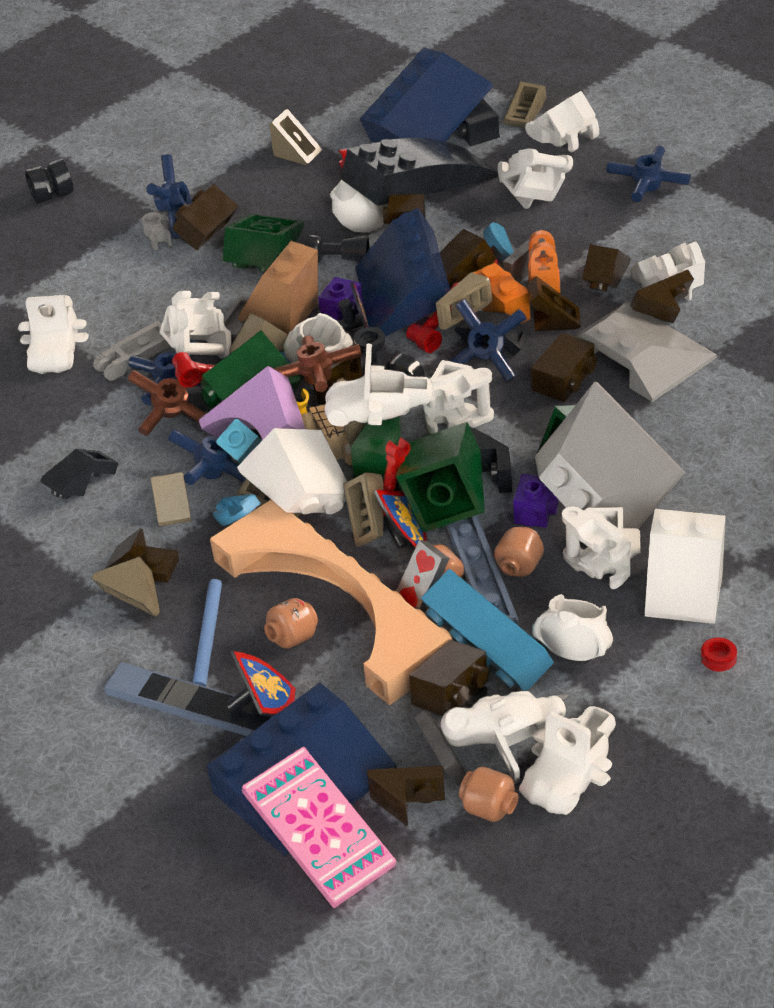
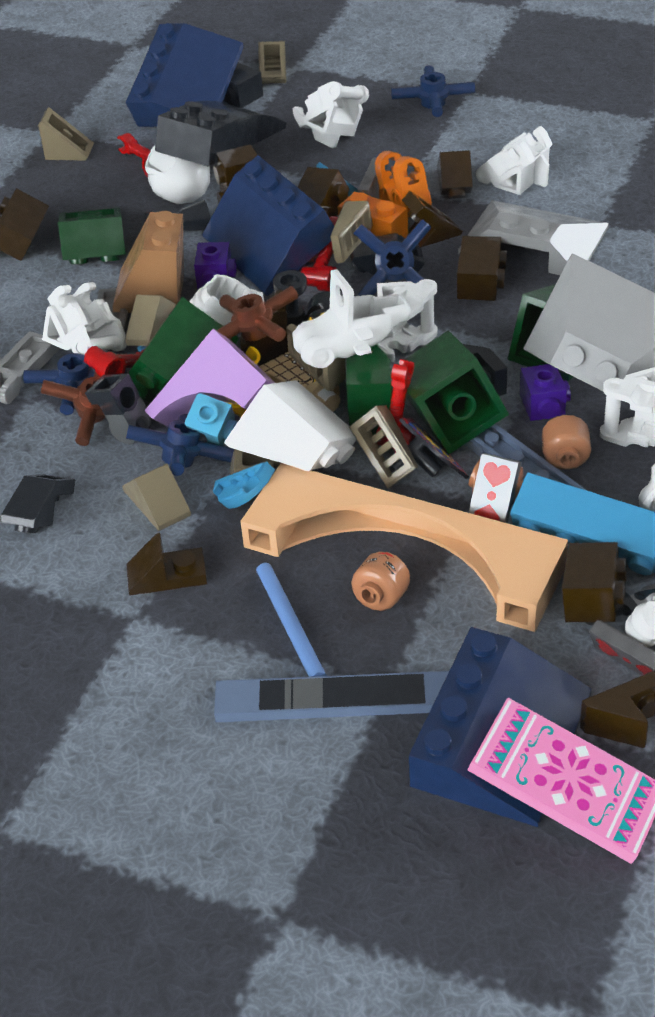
camera: 25 degrees left, 0 degrees up
(131, 583) = (175, 596): dark tan slope -> none
(181, 408) = (120, 404): none -> black leg
(264, 687) = (407, 654): shield -> none
(349, 319) = (245, 267): black shield -> none
(564, 123) = (324, 65): white piece -> none
(662, 297) = (531, 186): dark brown slope -> none

